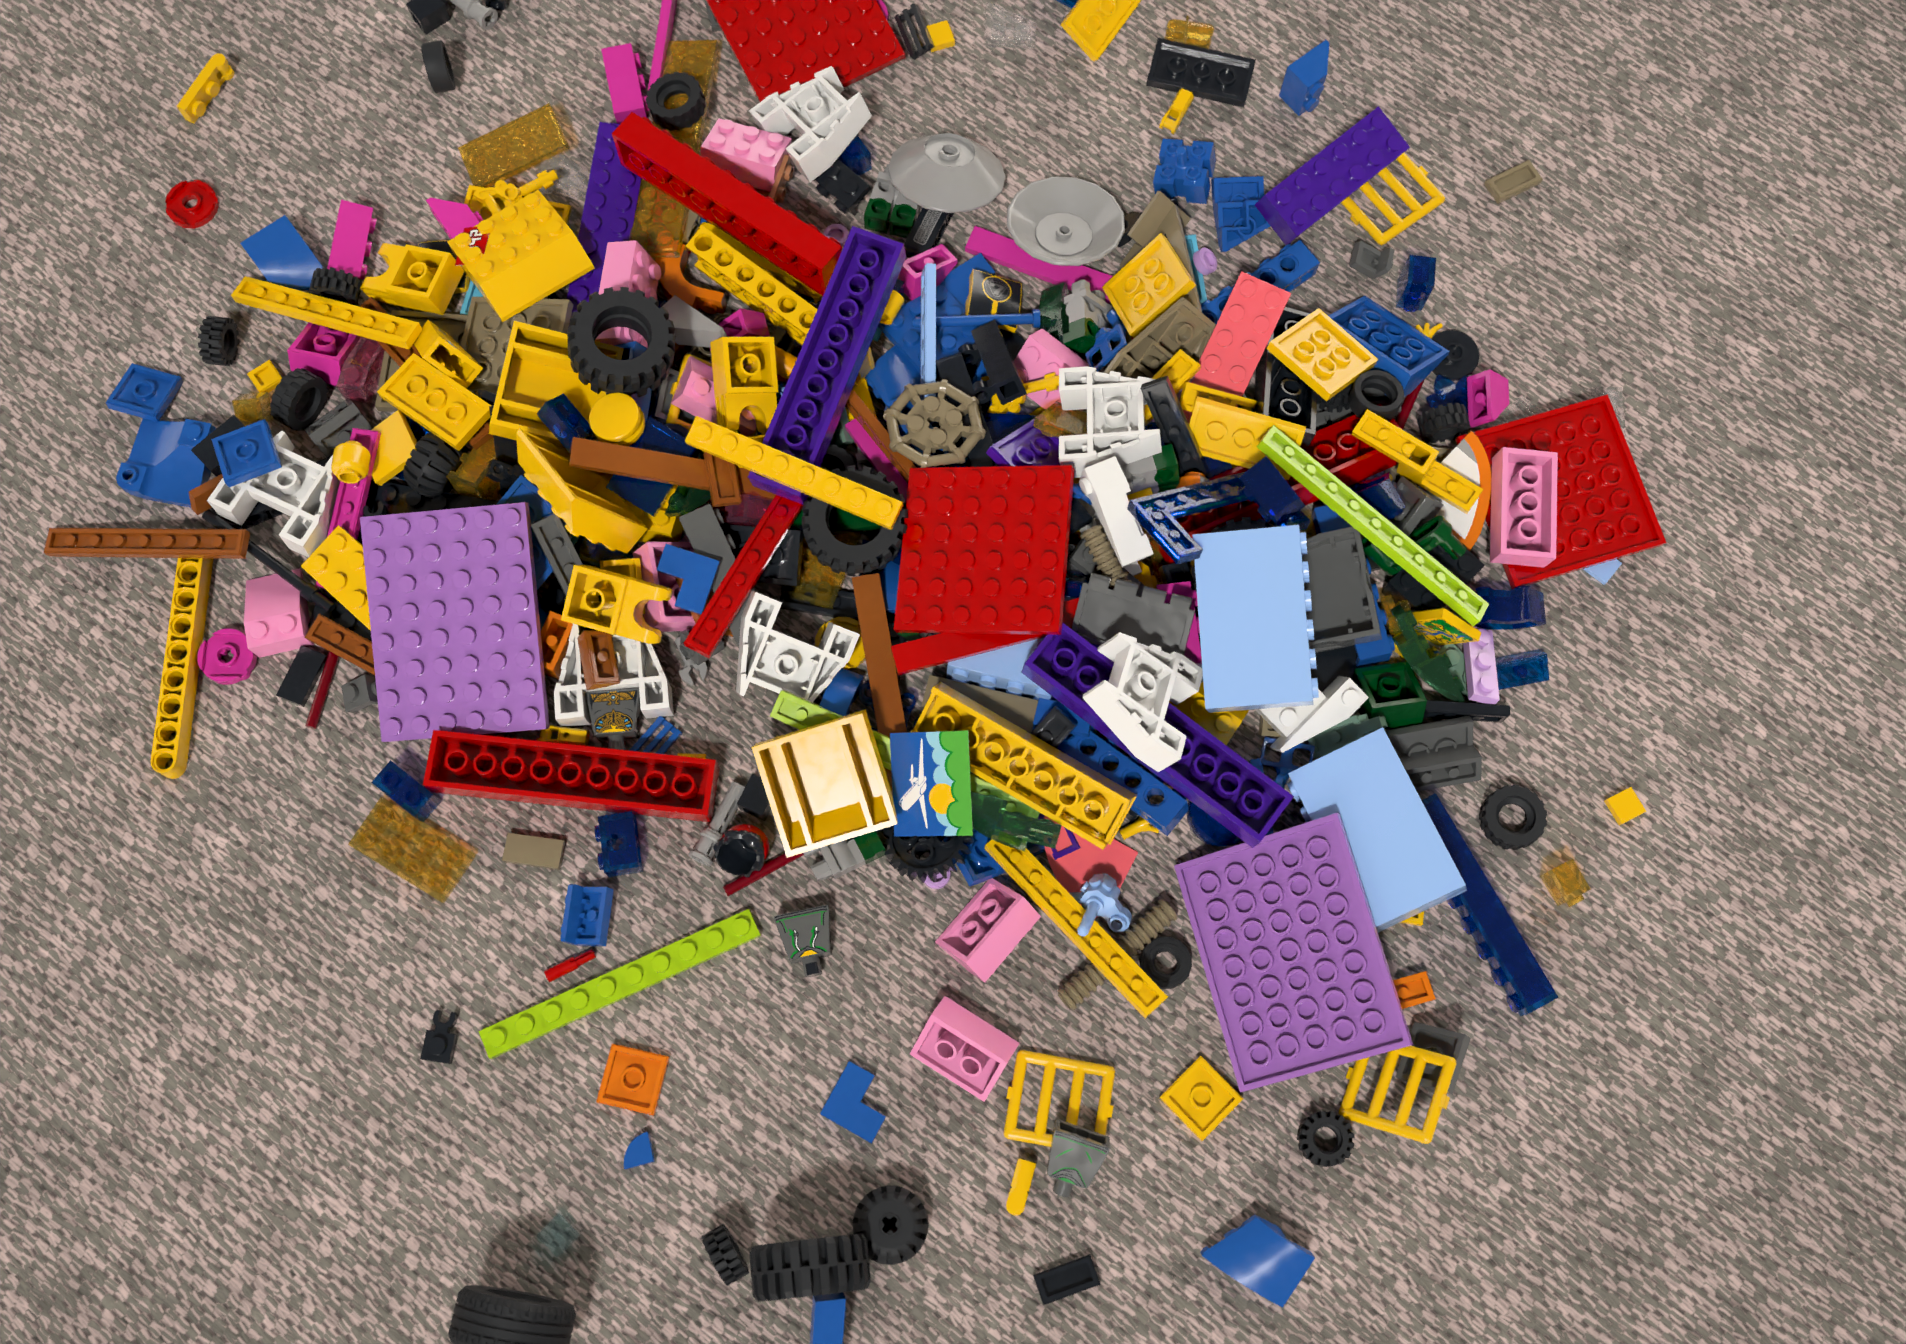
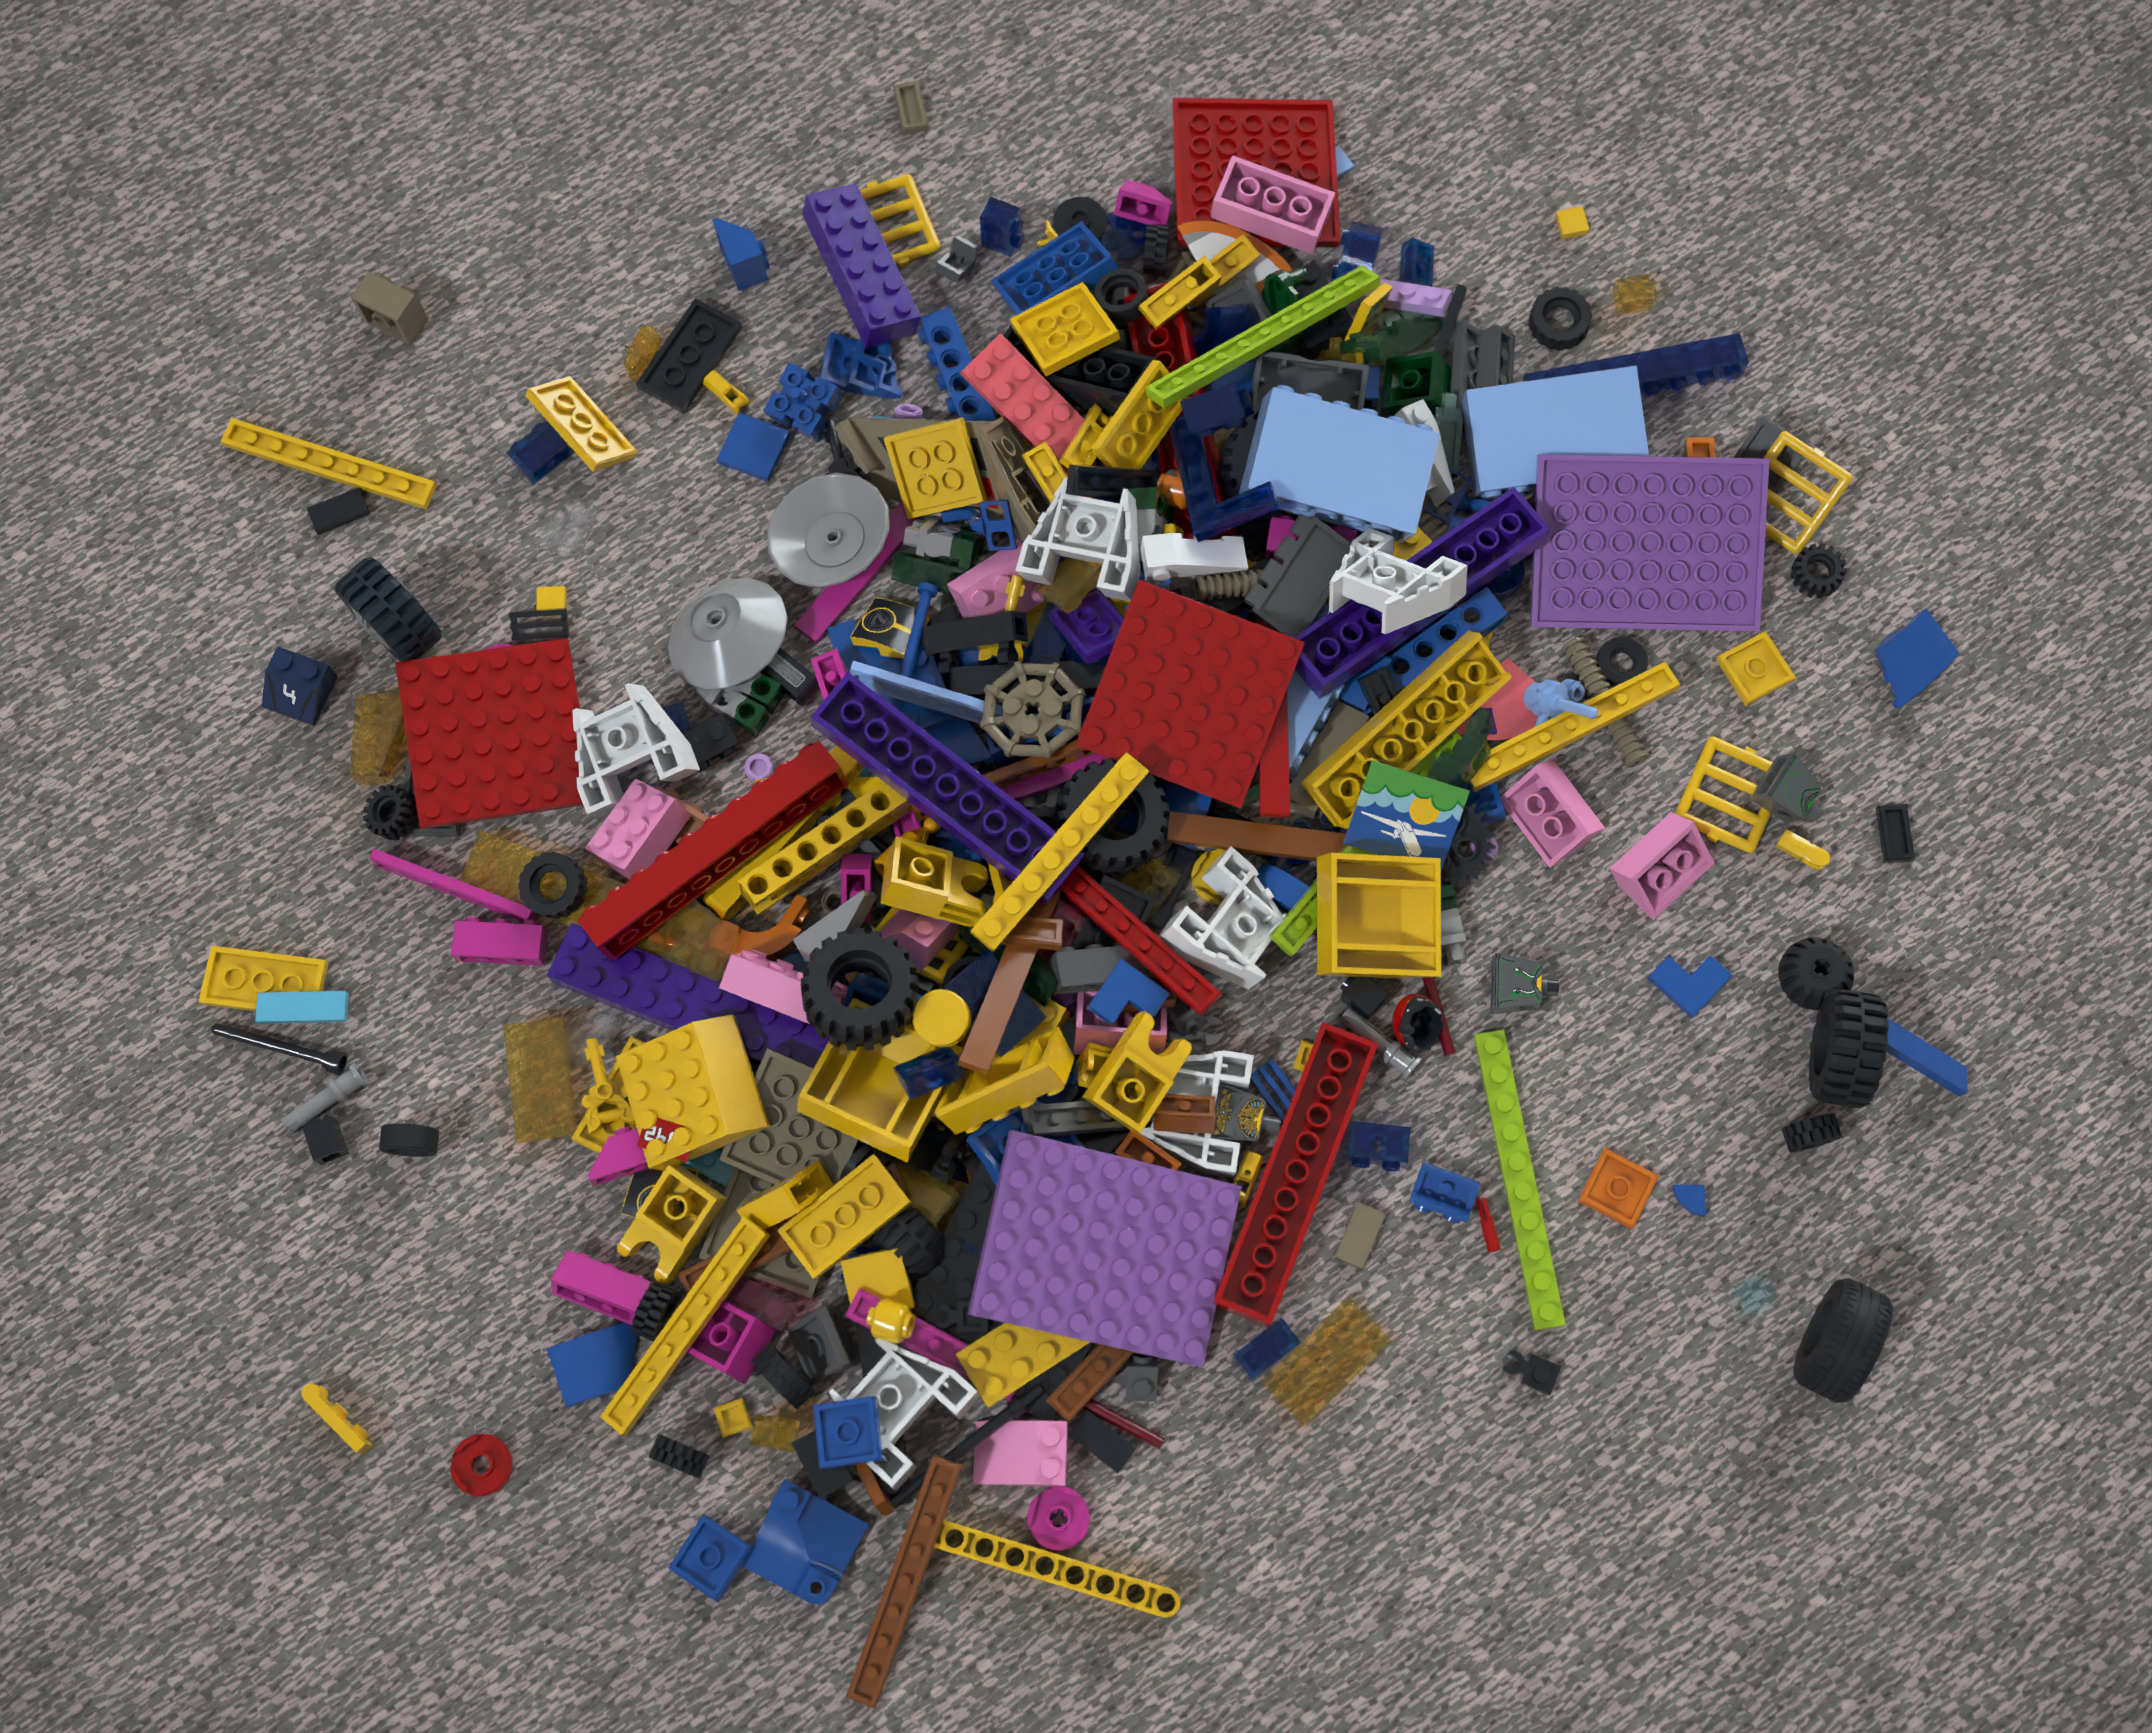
camera: 70 degrees left, 0 degrees up
(1132, 148) = (753, 447): none -> blue tile

